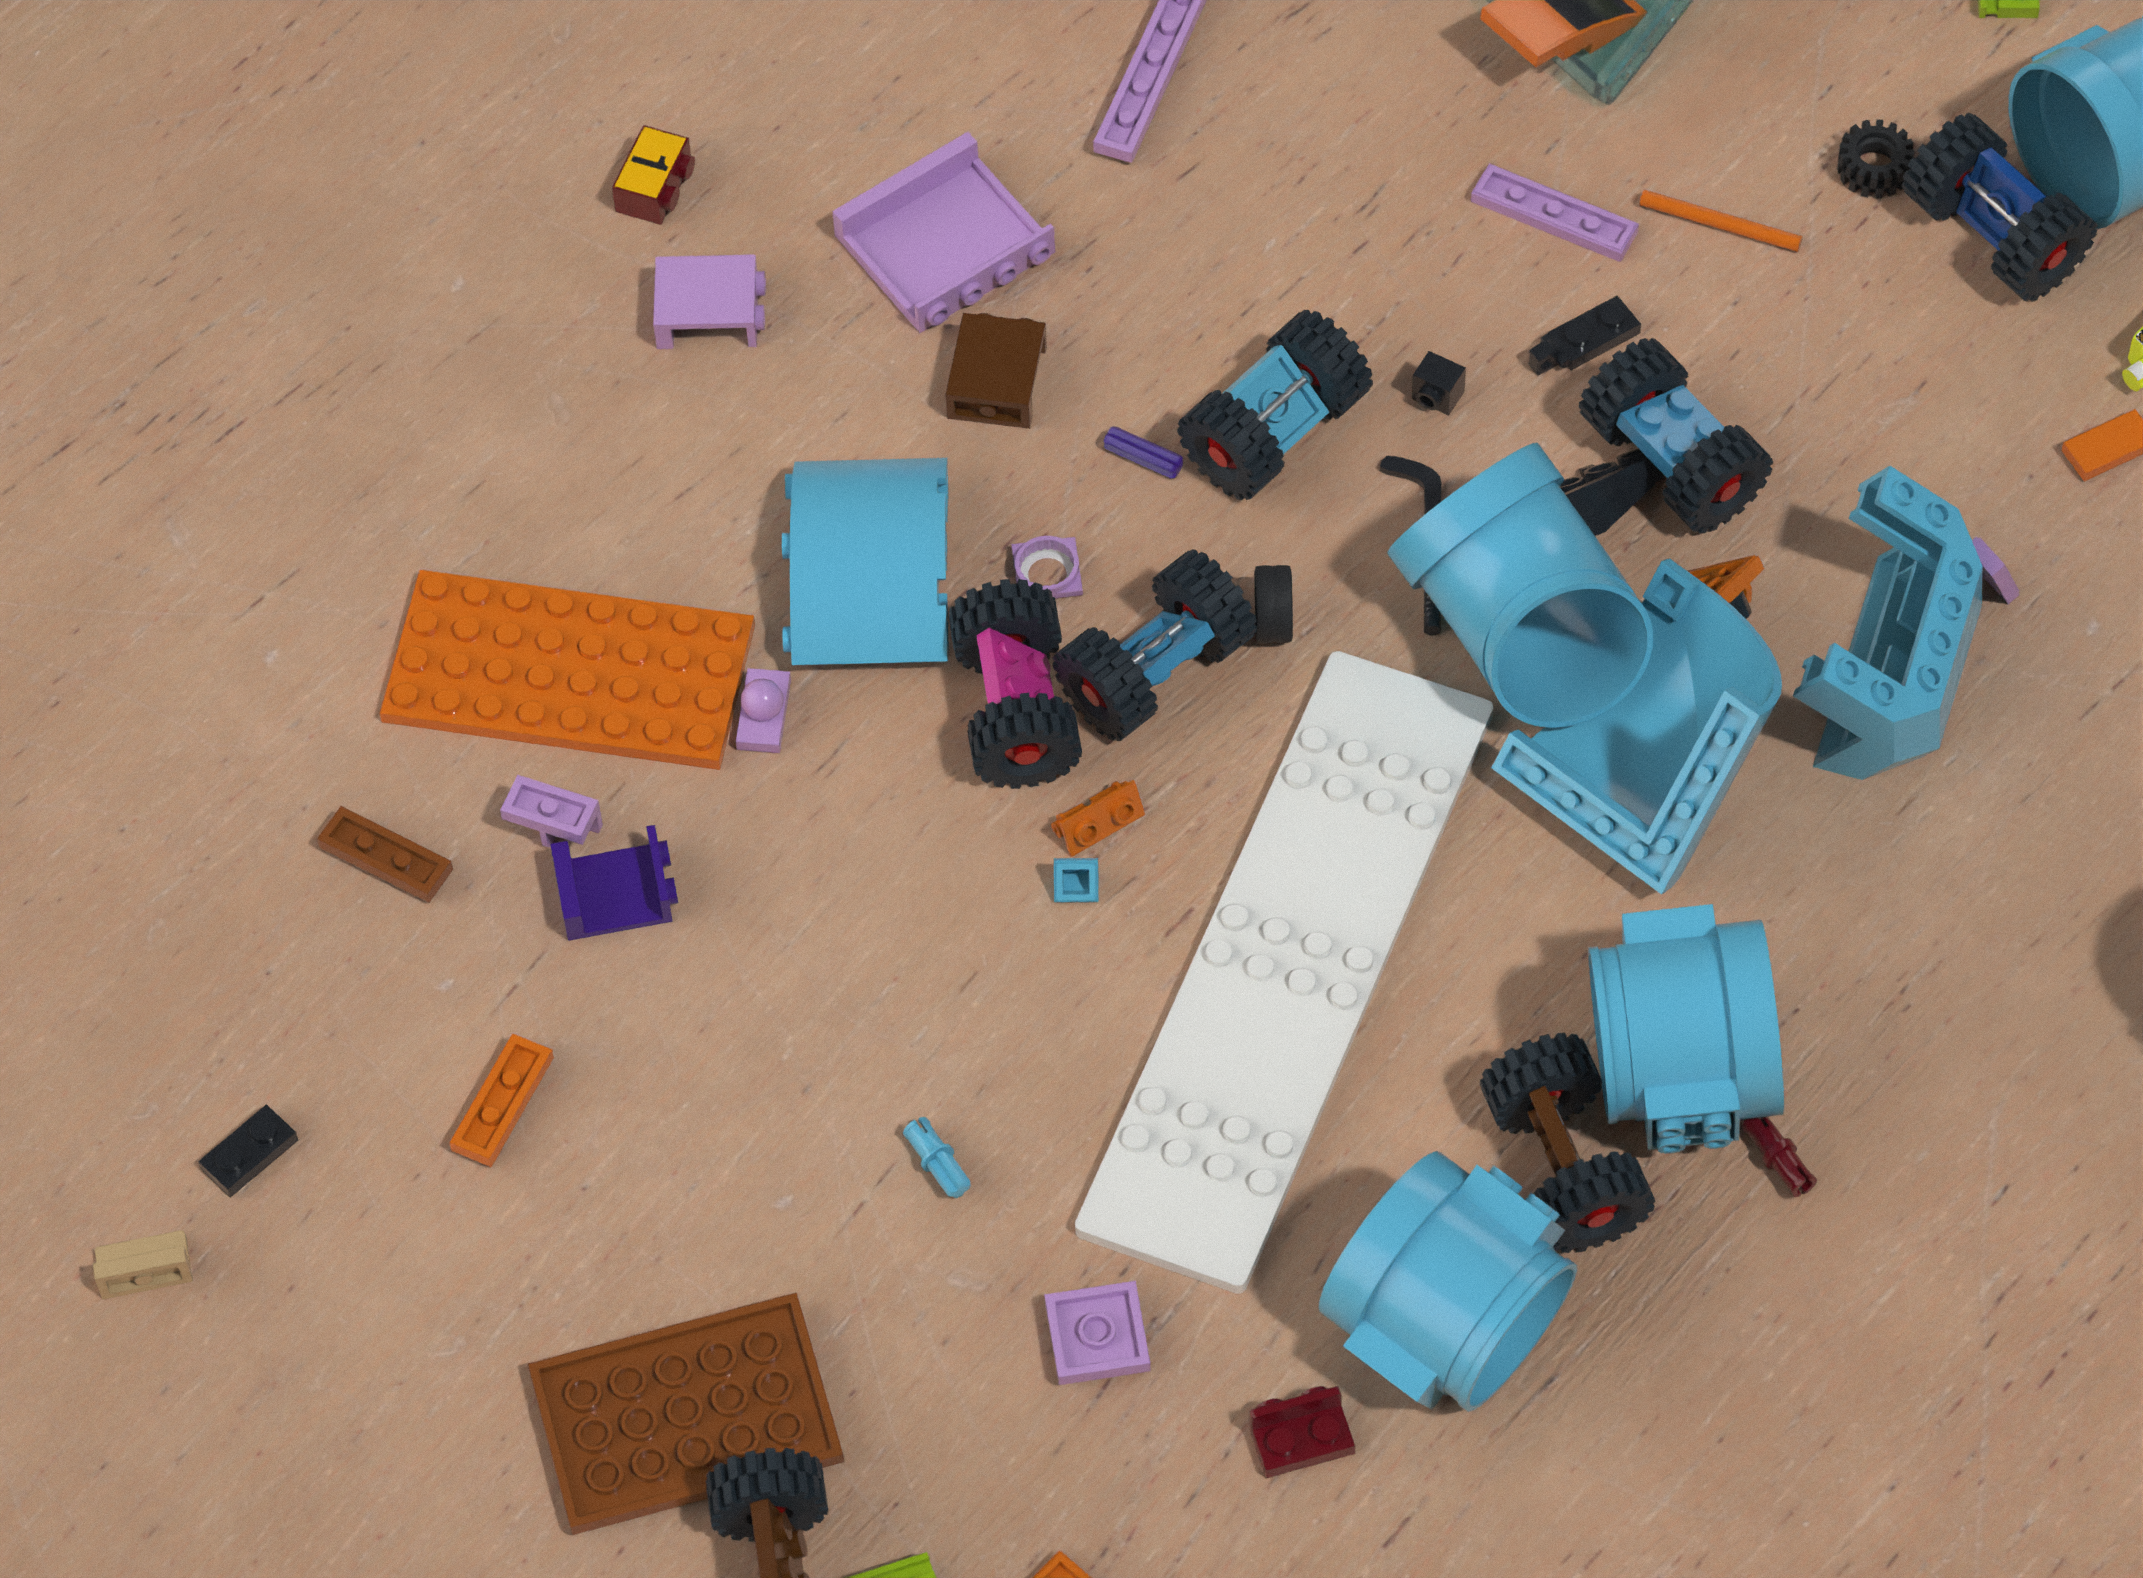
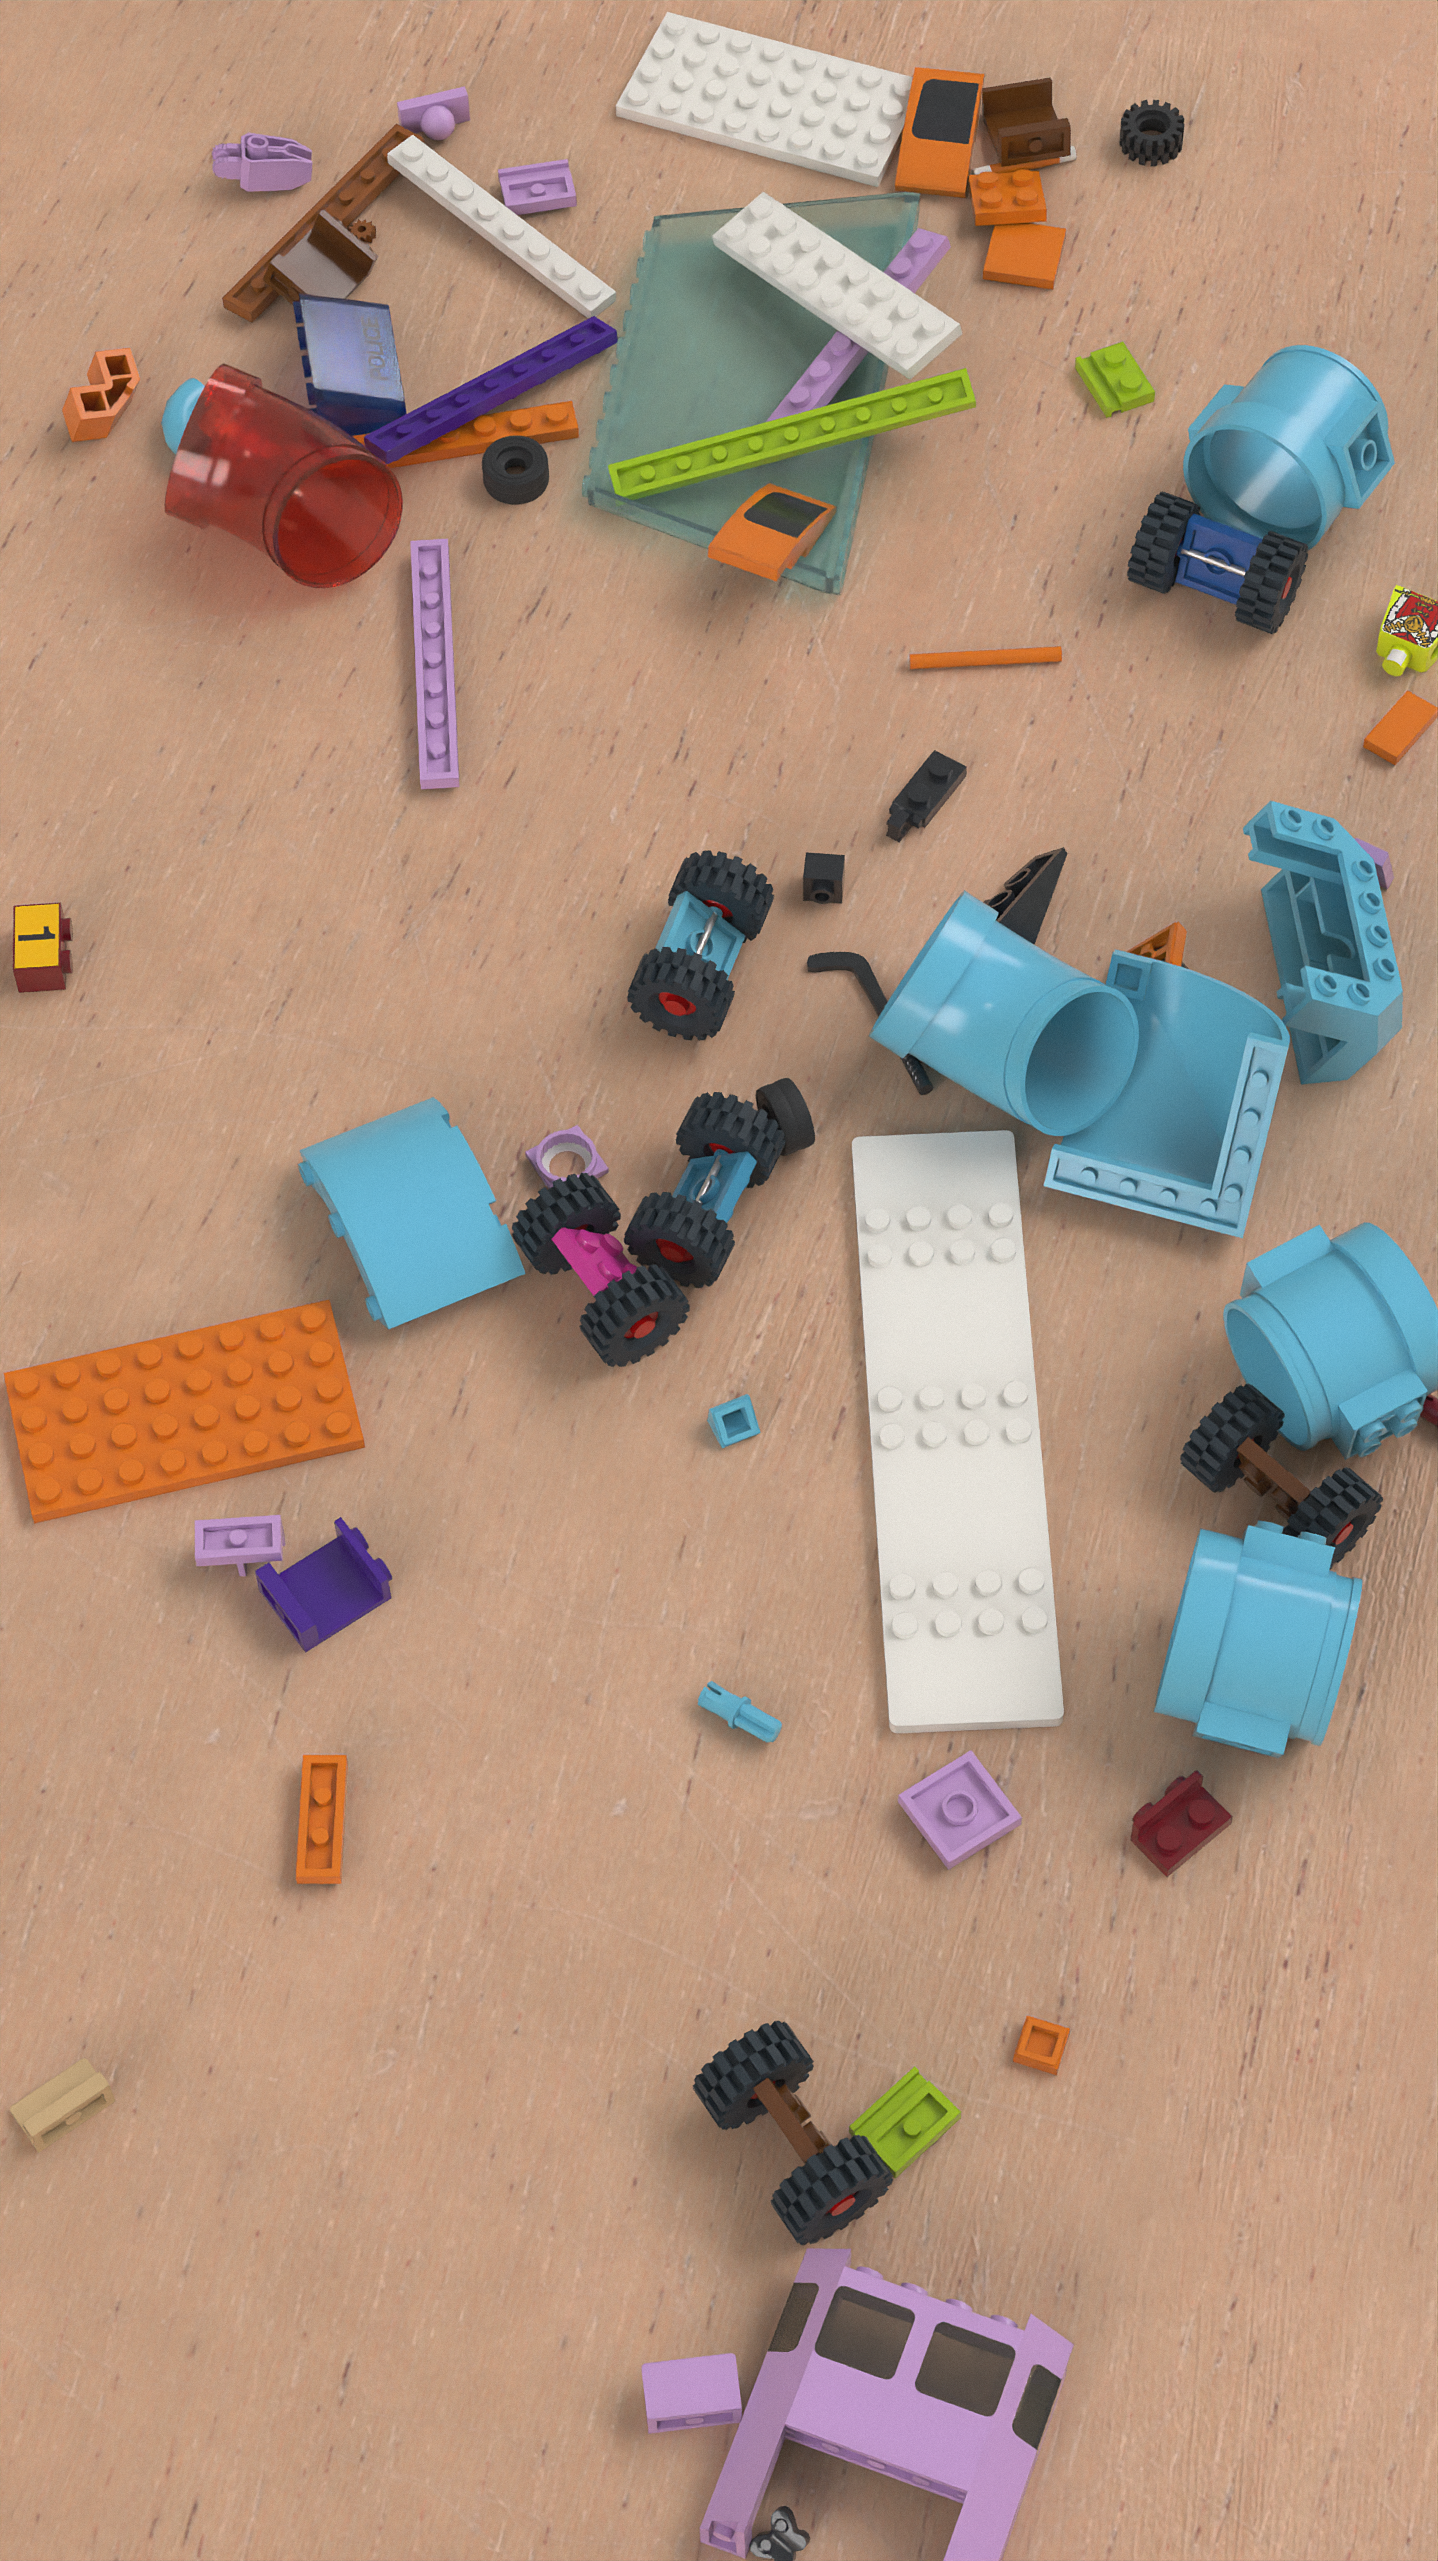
camera: 25 degrees left, 0 degrees up
(248, 1150) = (108, 1960): black plate -> none
(385, 854) = (101, 1640): dark orange plate -> none
(657, 1410) = (627, 2032): dark orange plate -> none
(707, 295) = (144, 1034): lavender panel -> none
(763, 710) = (379, 1379): lavender tile -> none
(941, 234) = (325, 907): lavender panel -> none
(995, 370) = (436, 1006): reddish brown panel -> none
(1104, 816) = (732, 1349): orange hinge -> none
(1143, 452) = (598, 1030): dark purple axle -> none
(1554, 212) = (843, 700): lavender tile -> none
(1706, 465) = (1015, 828): black plate -> none
(1879, 140) = (1088, 577): black tyre -> none

